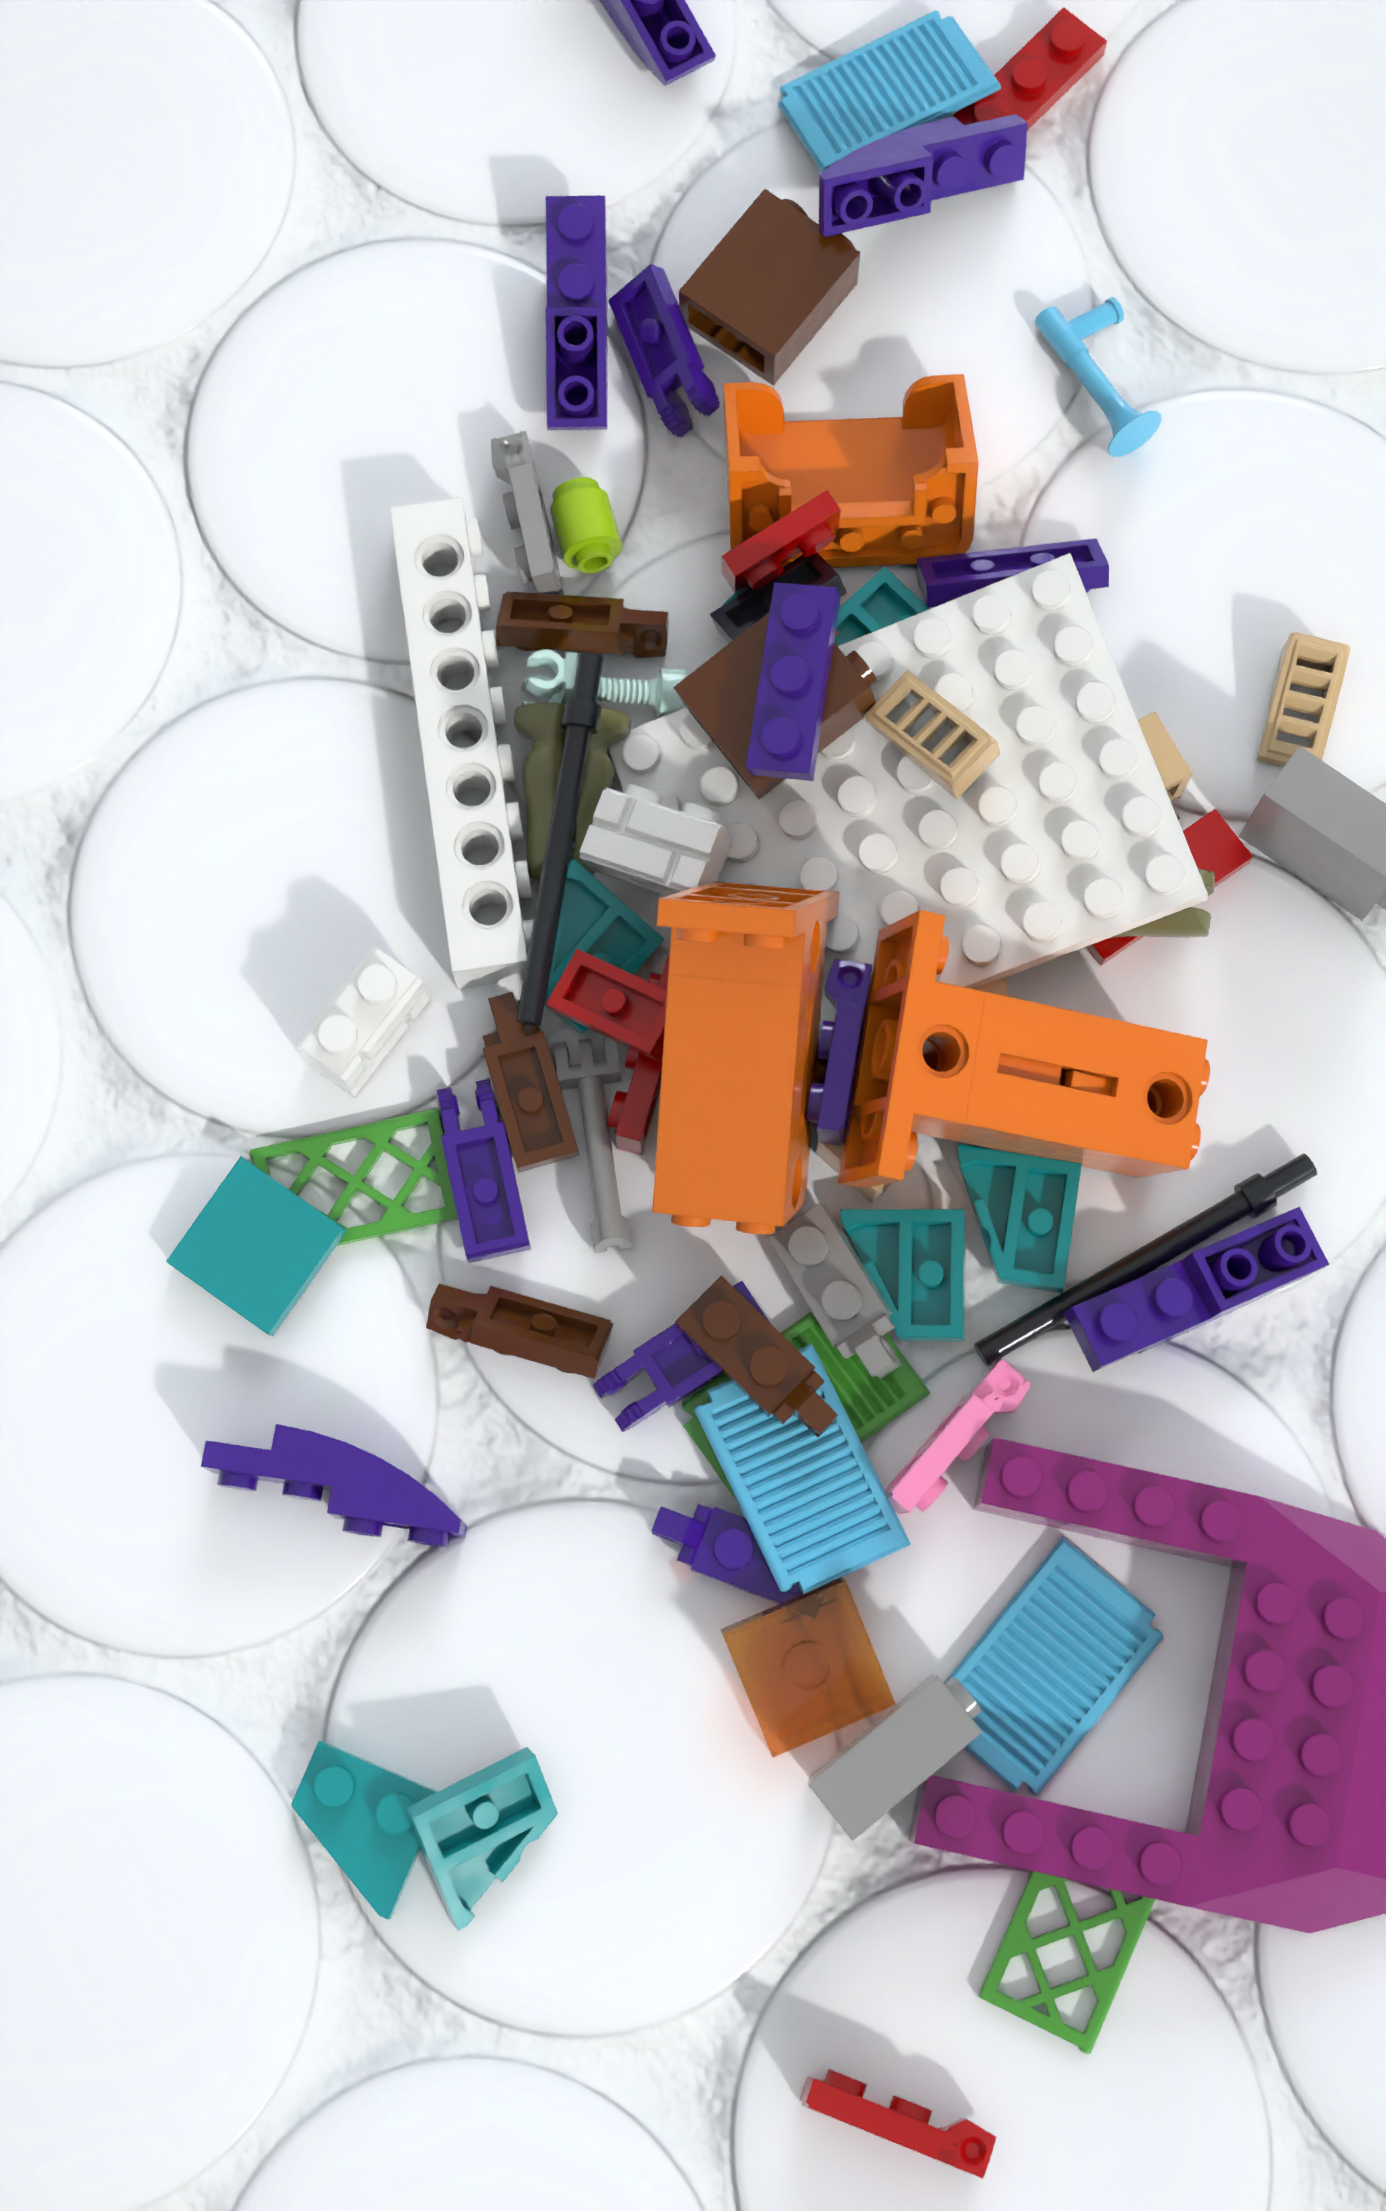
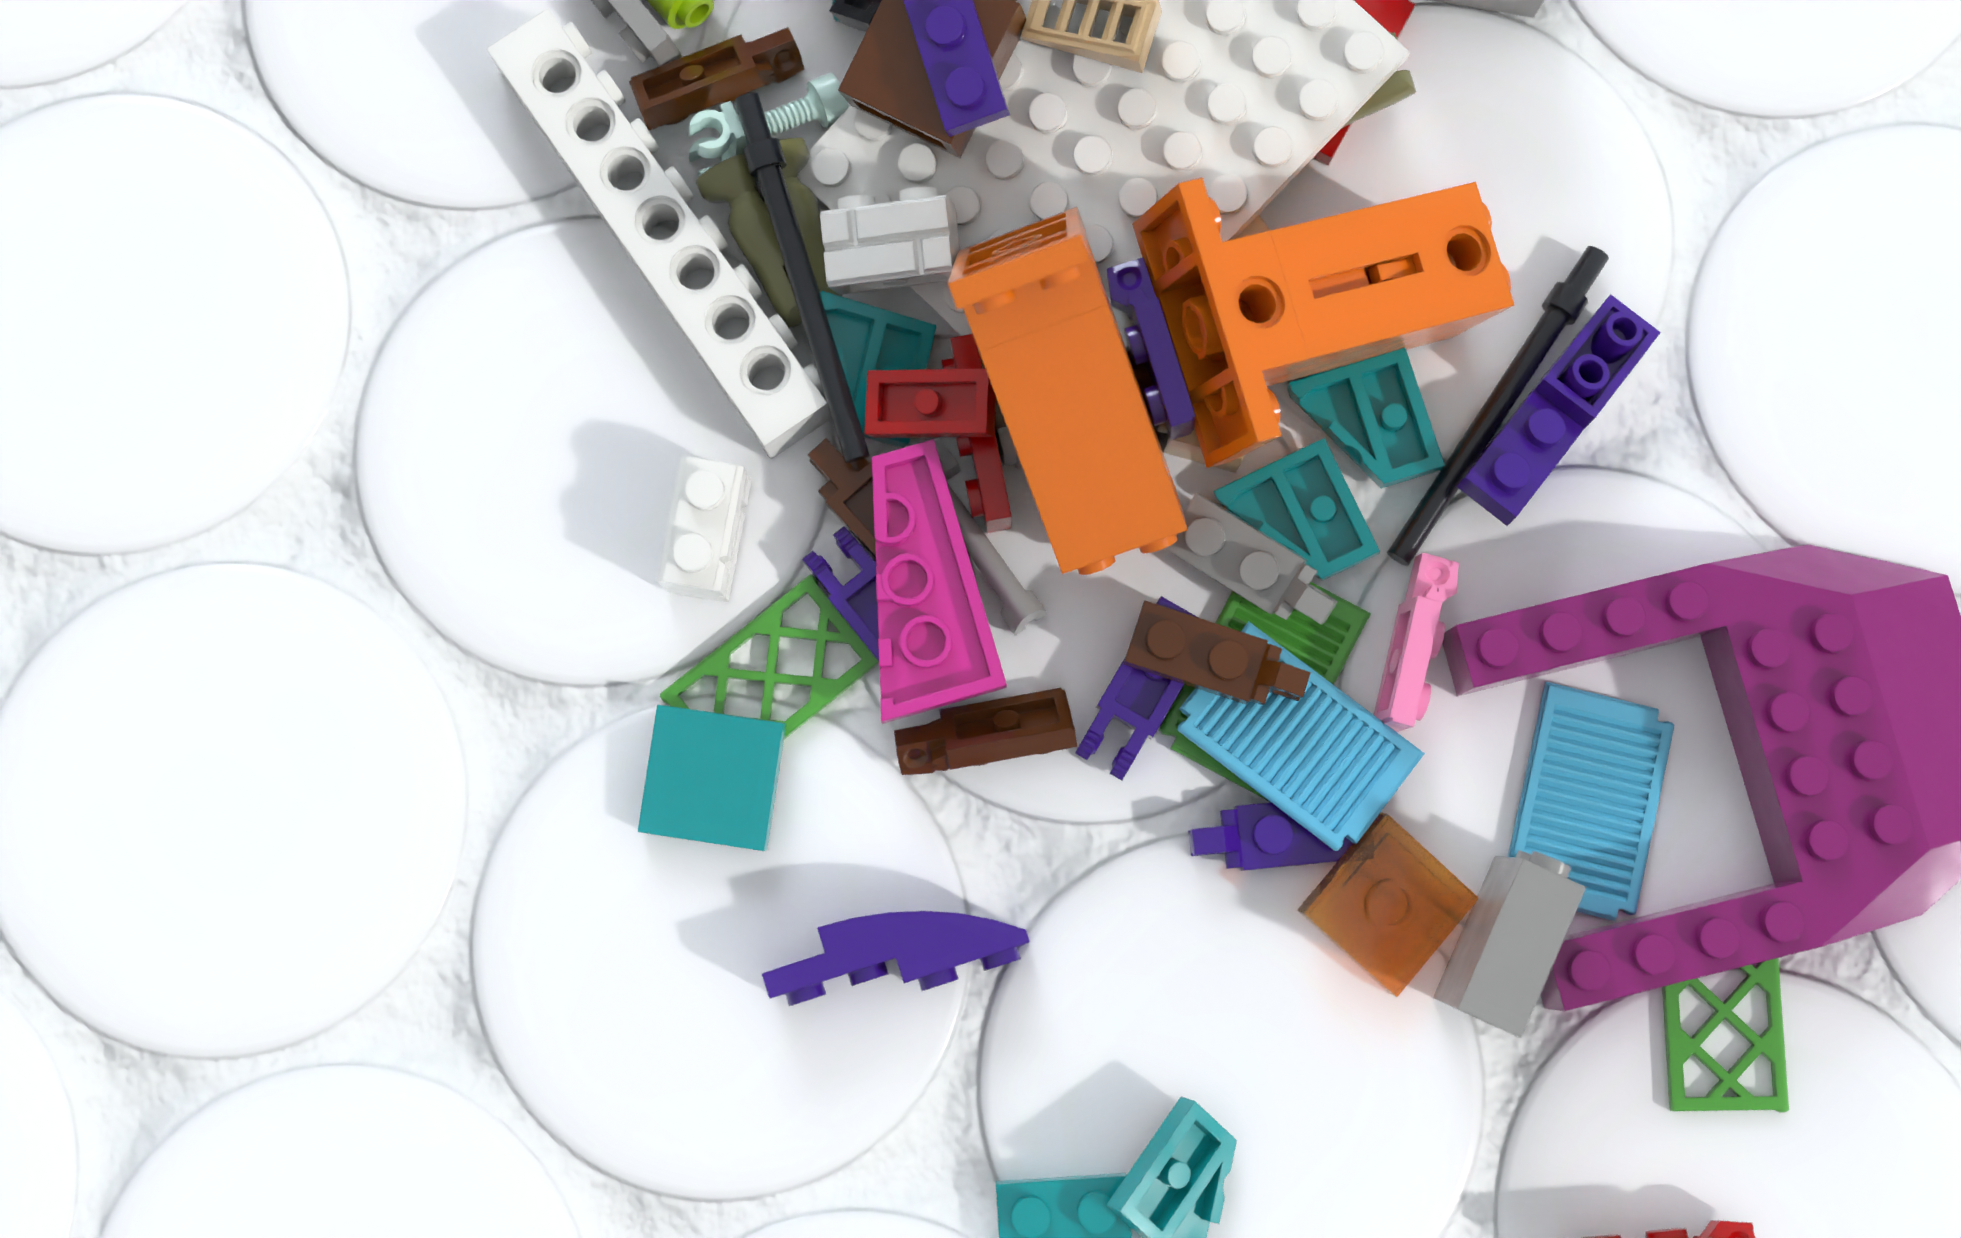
camera: 25 degrees left, 5 degrees up
(524, 1190) = (929, 605): none -> dark pink wing

